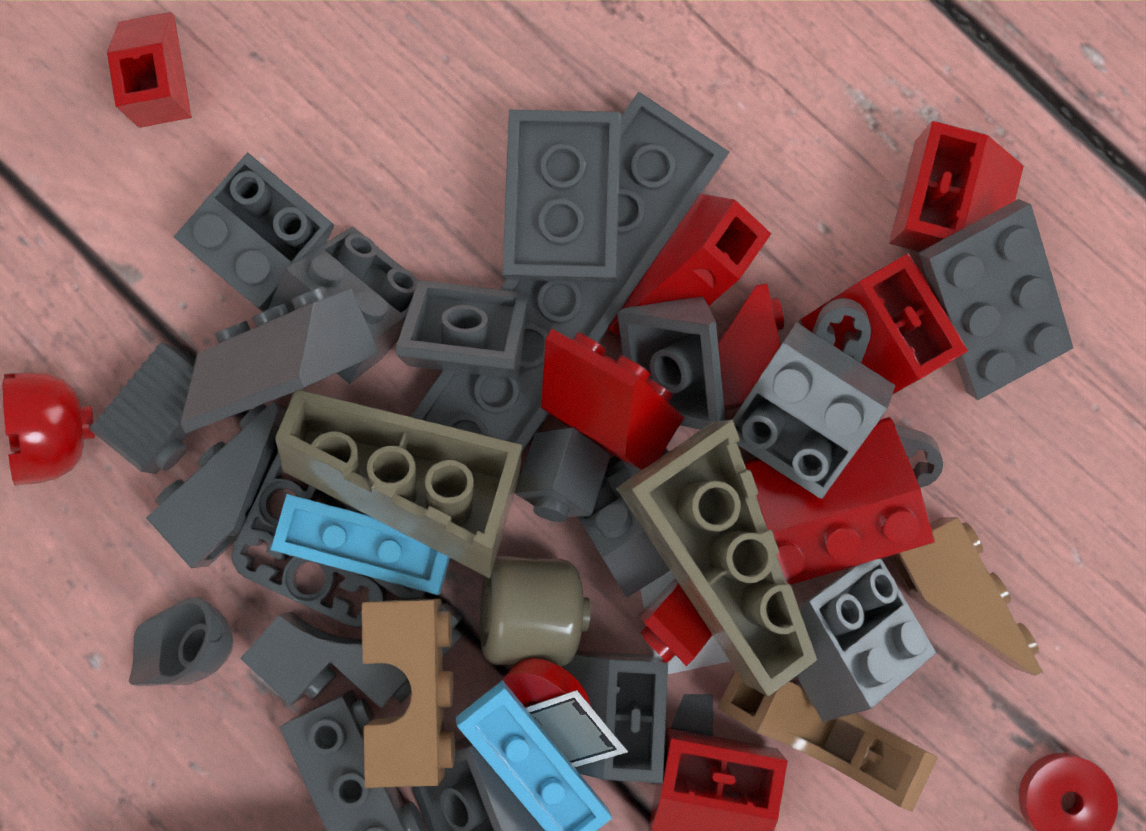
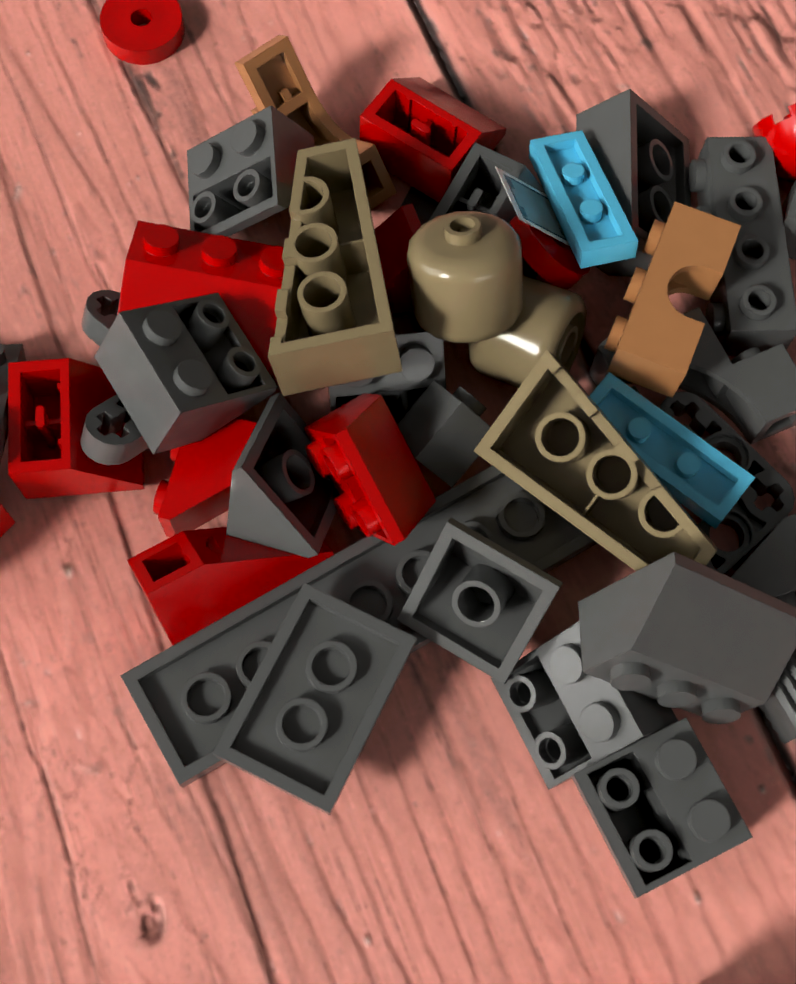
camera: 165 degrees left, 15 degrees down
(600, 606) = (465, 276): none -> dark tan head
(959, 589) = (127, 187): medium nougat slope -> none

